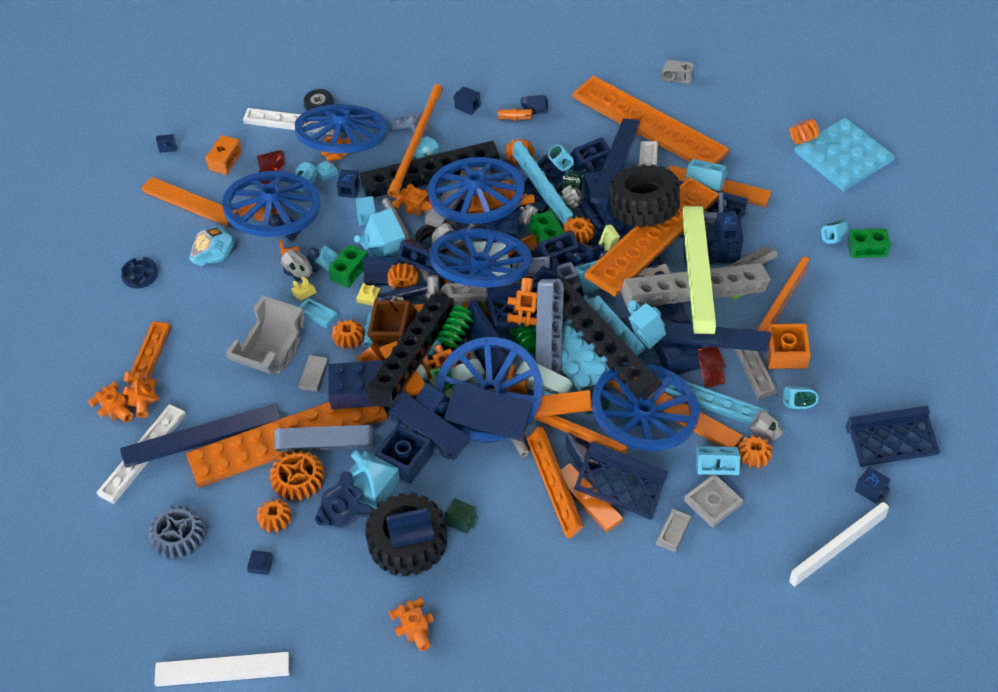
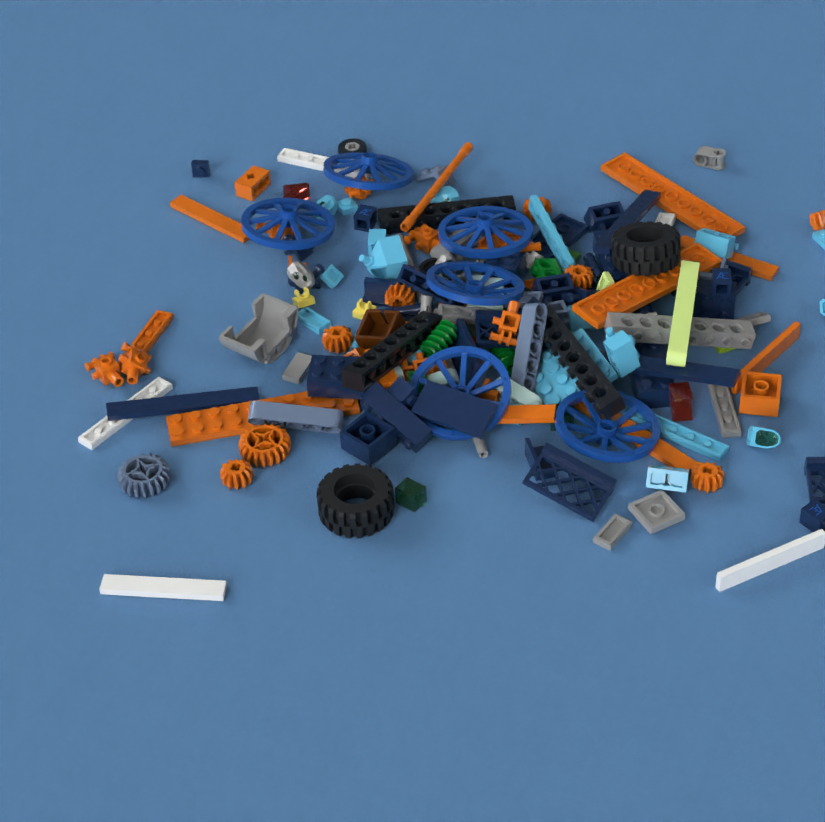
camera: 10 degrees right, 10 degrees down
(138, 272) = (150, 268): dark blue piece -> none
(214, 240) = (230, 249): medium azure helmet -> none
(260, 562) = (215, 510): dark blue plate -> none
(341, 504) = (300, 470): dark blue tile -> none
(347, 266) = (349, 285): green brick -> none
(374, 477) = (330, 452): medium azure piece -> none
(410, 527) = (358, 487): dark blue panel -> none
(413, 623) = (346, 572): orange piece -> none
(467, 100) = (496, 161): dark blue brick -> none
(515, 114) = (540, 178): orange pin -> none
(537, 103) = (562, 170): dark blue rock -> none
(554, 482) = (506, 479): orange tile -> none
(560, 157) = (575, 215): medium azure rock -> none
(571, 196) = (578, 248): light grey gear -> none
(572, 178) = (581, 239): clear green brick -> none
(582, 432) = (536, 438): orange axle -> none
(599, 510) = (542, 505): orange tile -> none
(766, 426) = (723, 457): light grey rock -> none

